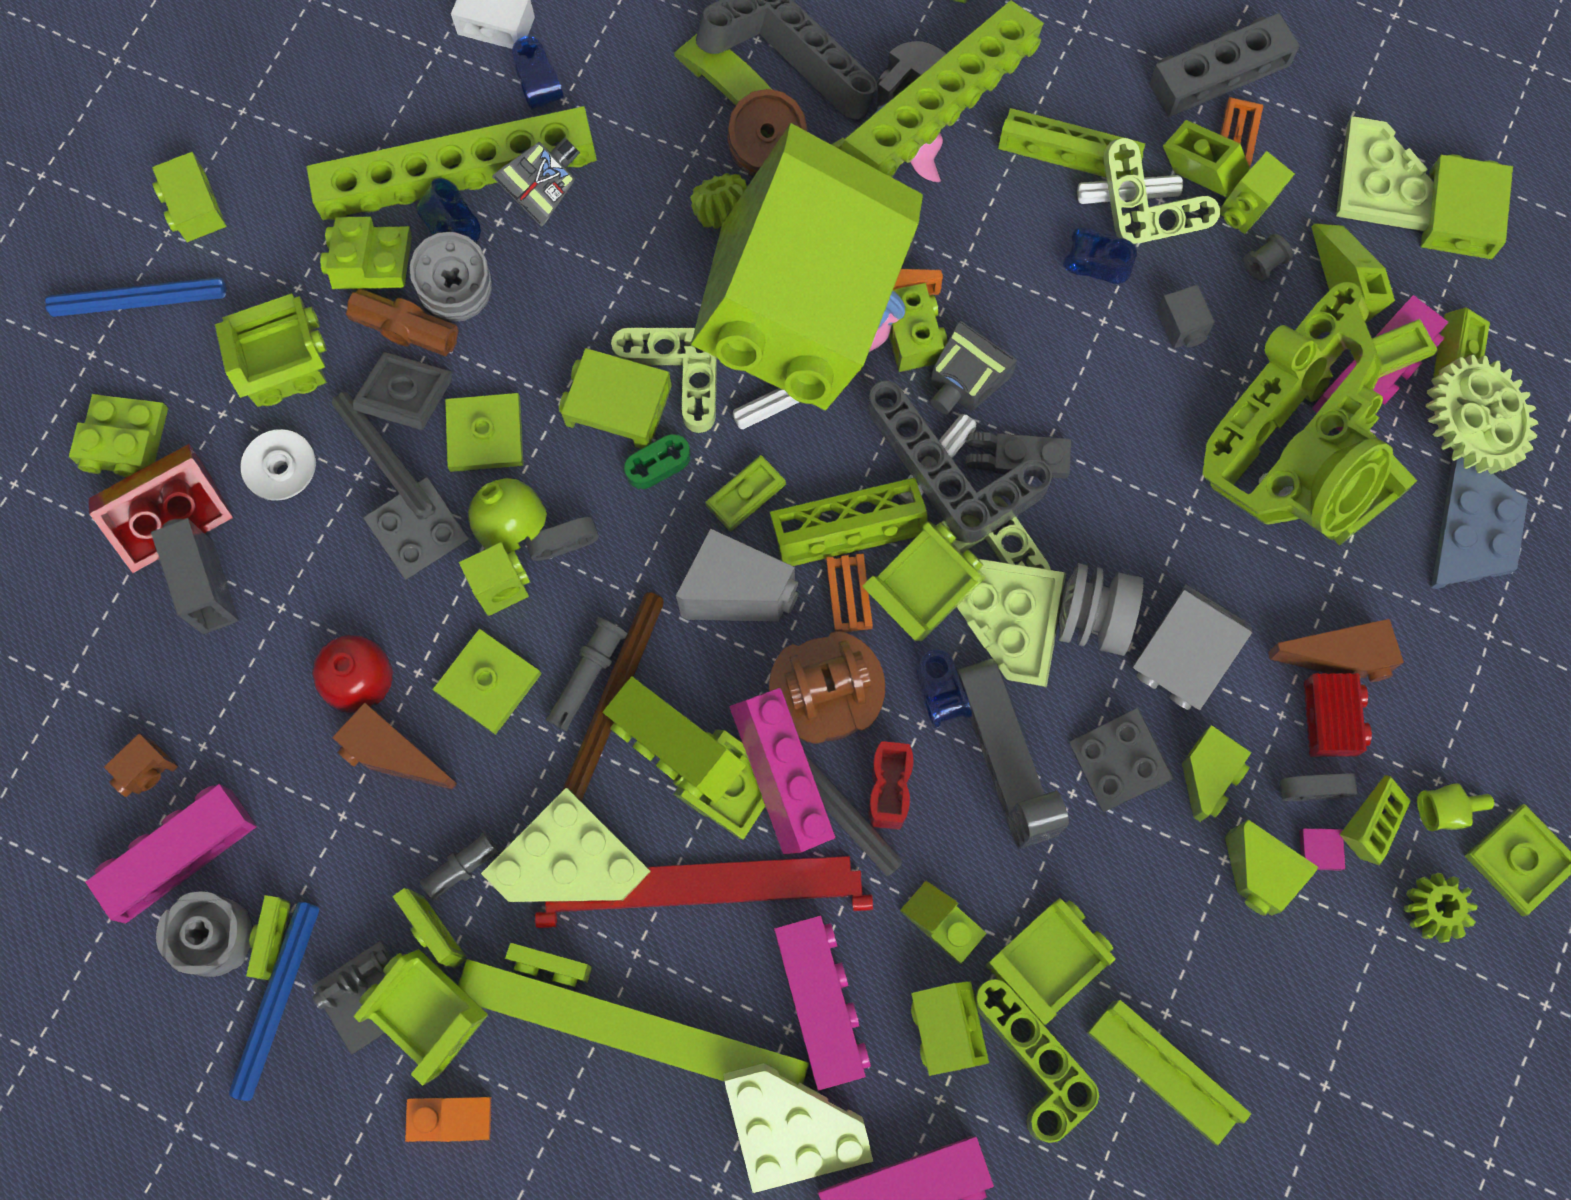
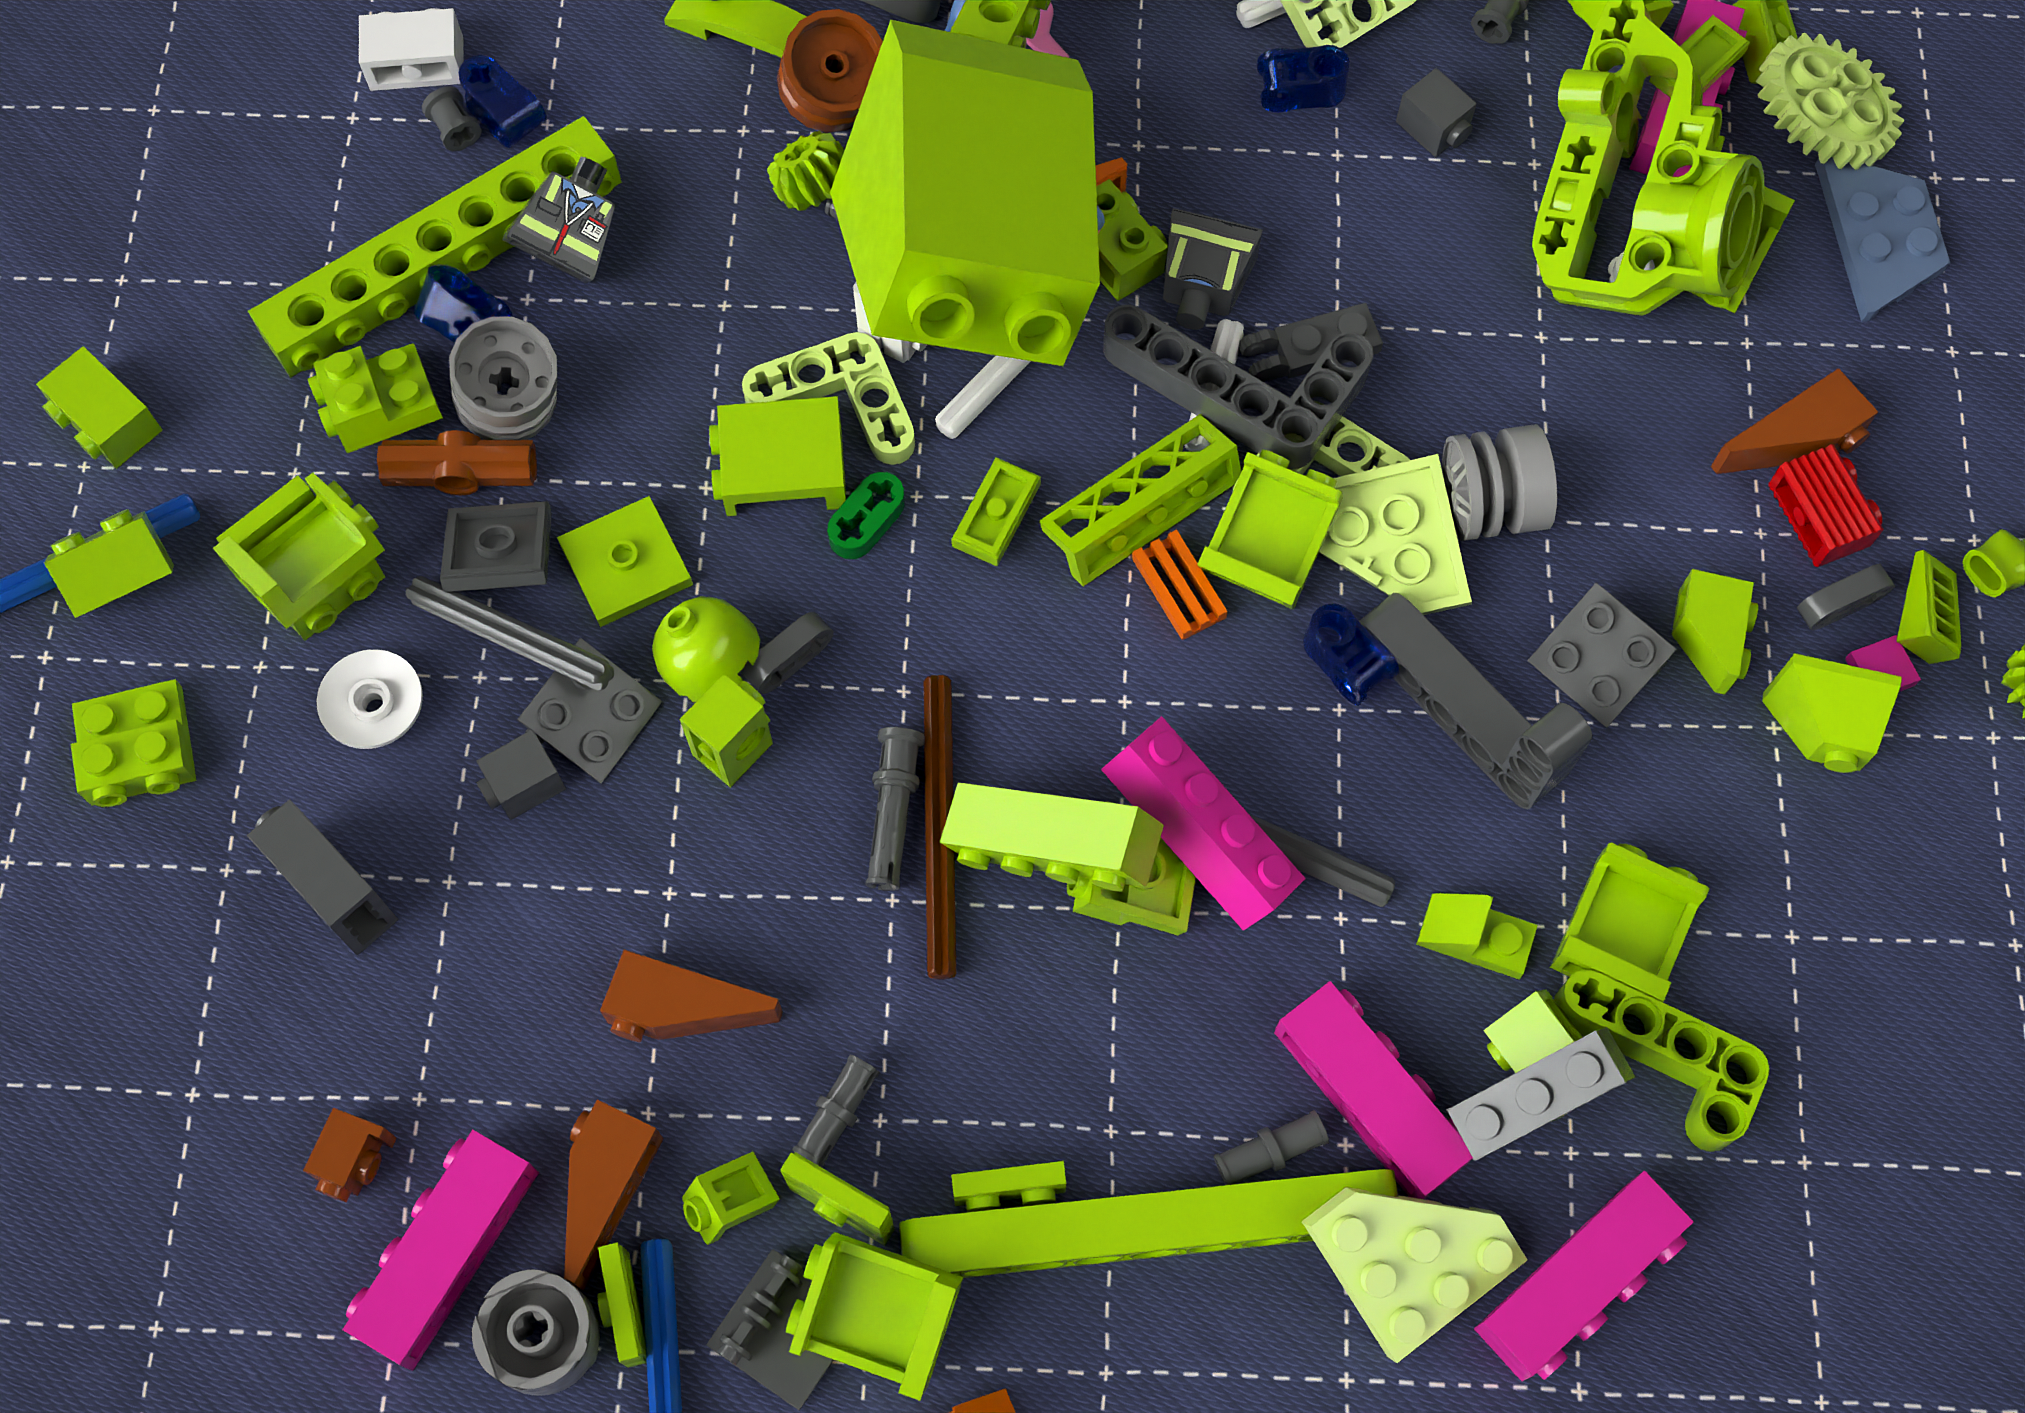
camera: 25 degrees left, 5 degrees down
(150, 308) = (109, 562): none -> lime brick
(151, 497) = (209, 811): red slope -> none
(290, 849) = (604, 1172): none -> dark orange slope
(351, 555) = (518, 776): none -> dark grey brick
(352, 673) = (584, 925): red cylinder -> none
(365, 894) = (728, 1197): none -> lime bracket
(487, 681) = (767, 867): lime plate -> none
(498, 68) = (447, 111): none -> dark grey bush
(566, 858) = (973, 1044): yellowish green plate -> none
(731, 884) = (1156, 1012): red piece -> none
(733, 1012) = (1271, 1148): none -> dark grey pin
(736, 583) = (1042, 618): light grey slope -> none
(830, 686) = (1216, 696): dark orange piece -> none
(890, 793) = (1347, 800): red brick -> none
(925, 1056) = (1541, 1093): none -> brick
(1167, 1072) = (1829, 1000): lime fence -> none
(1192, 648) = (1626, 489): light grey slope -> none

